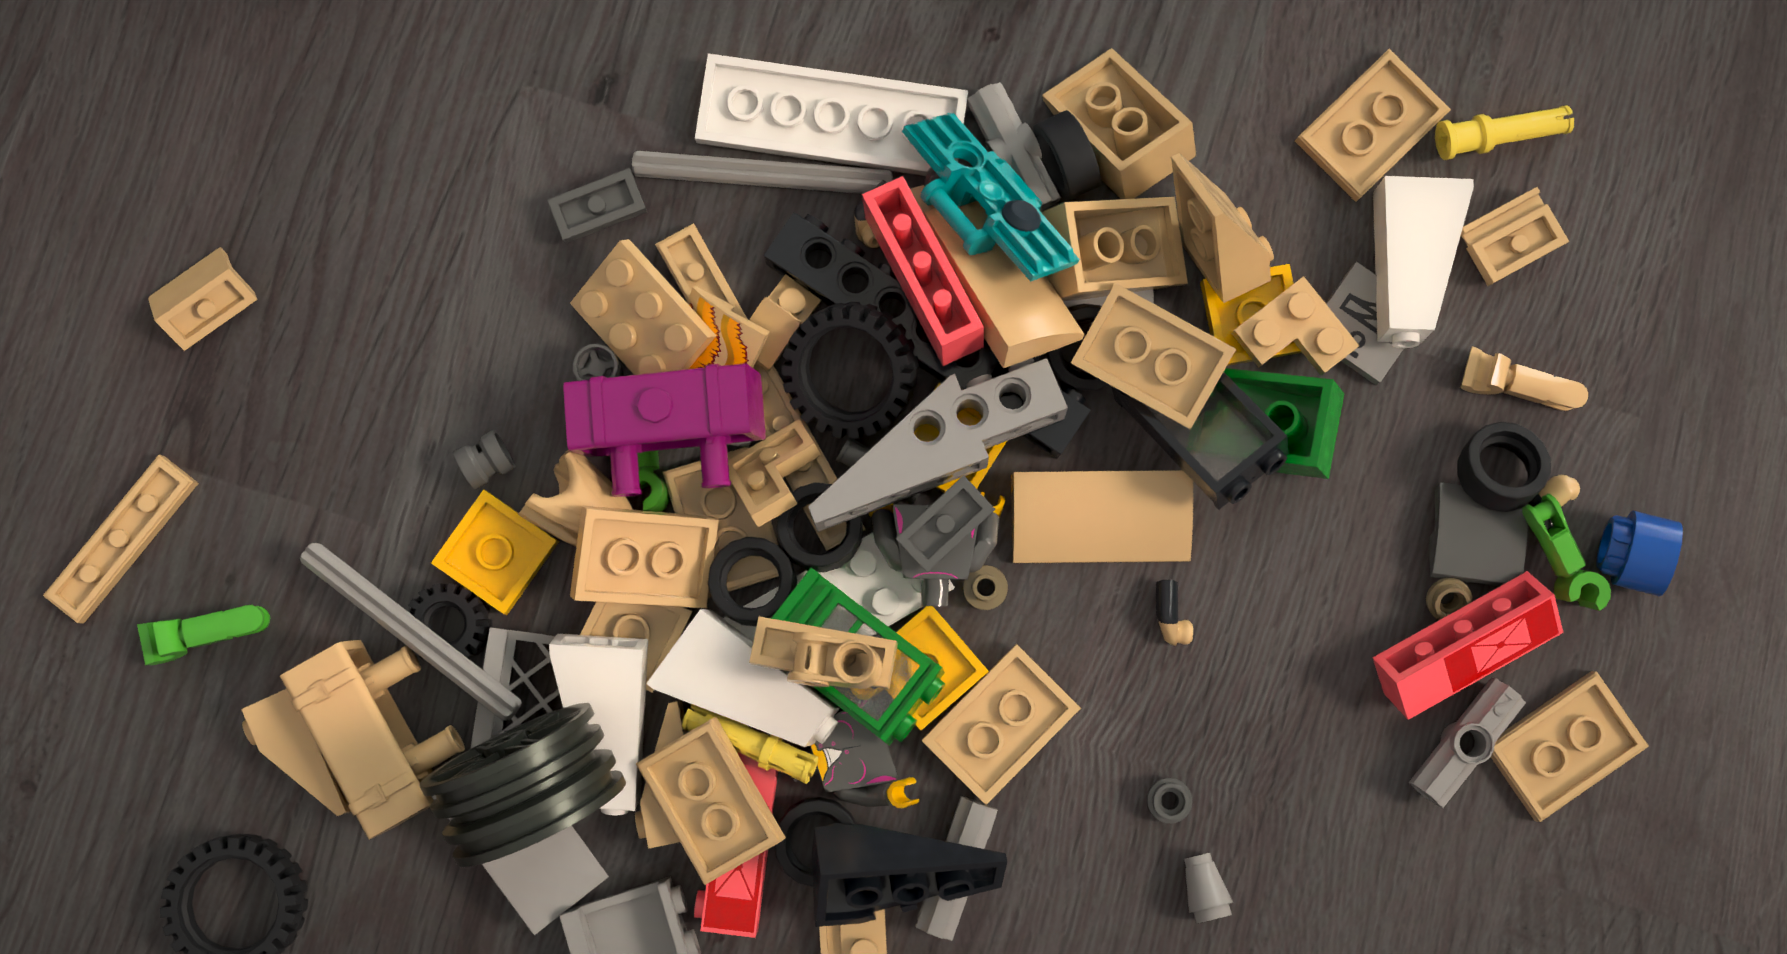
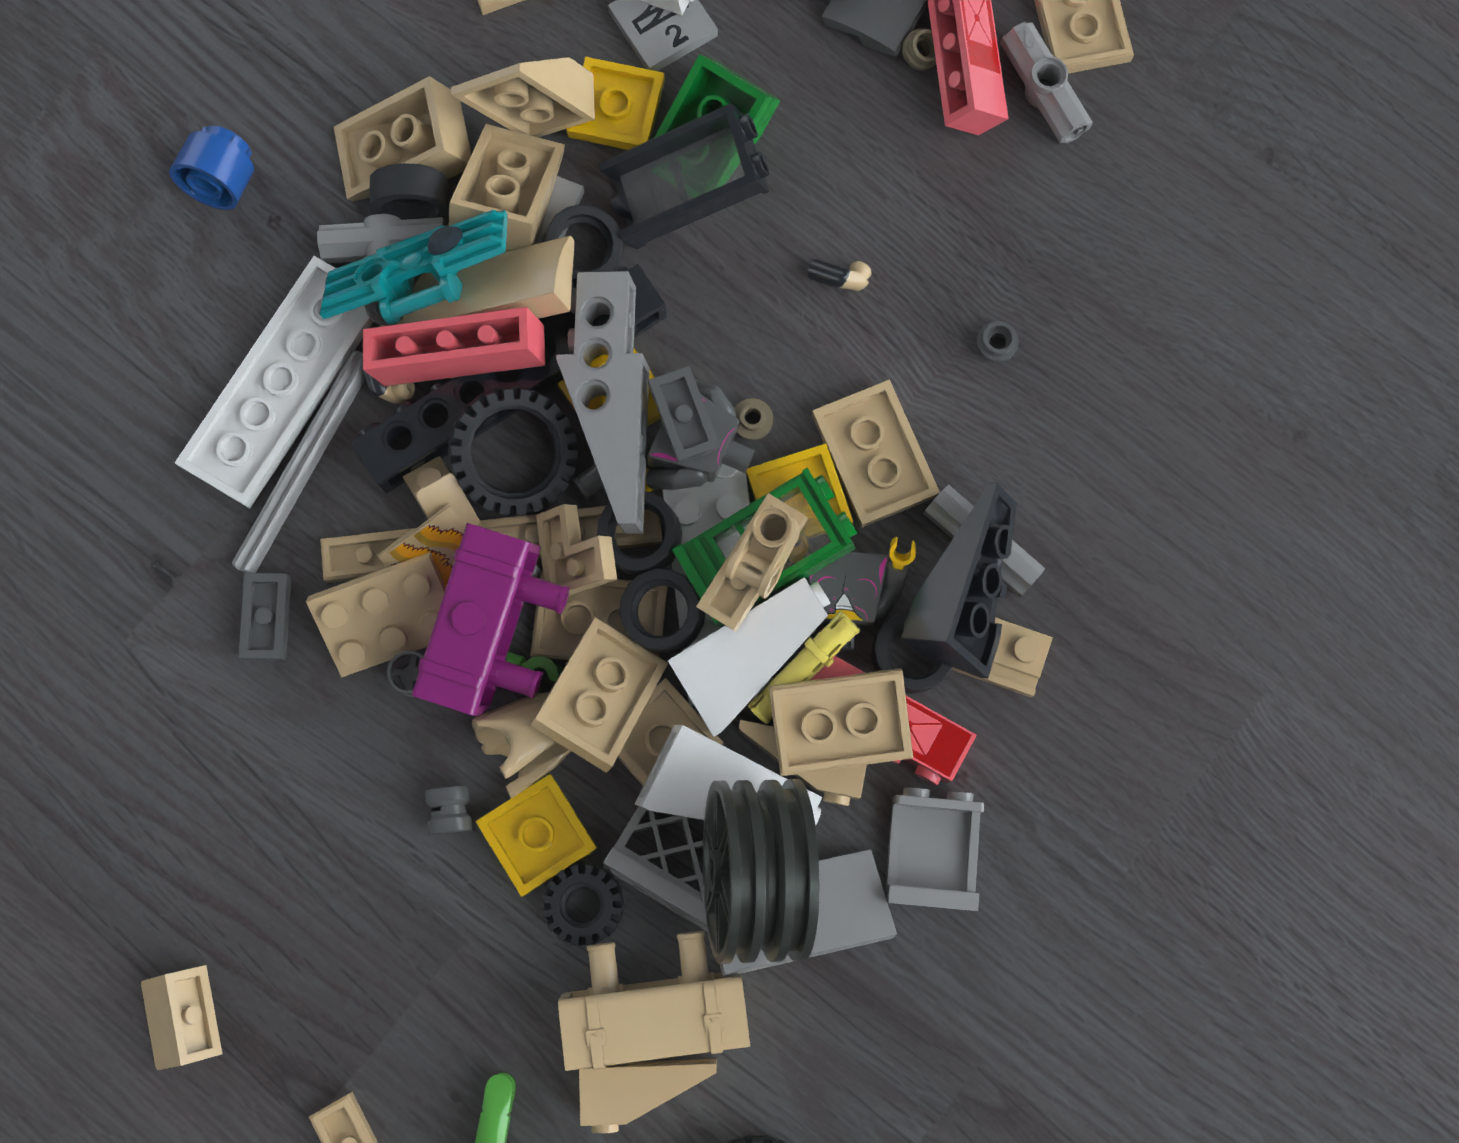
camera: 60 degrees left, 5 degrees down
(411, 631) = (574, 936): light grey axle -> none
(1101, 516) = (732, 298): tan slope -> none
(1153, 356) = (614, 187): tan plate -> none
(1205, 889) = (1084, 341): light grey cone -> none
(1301, 318) = (635, 65): tan plate -> none

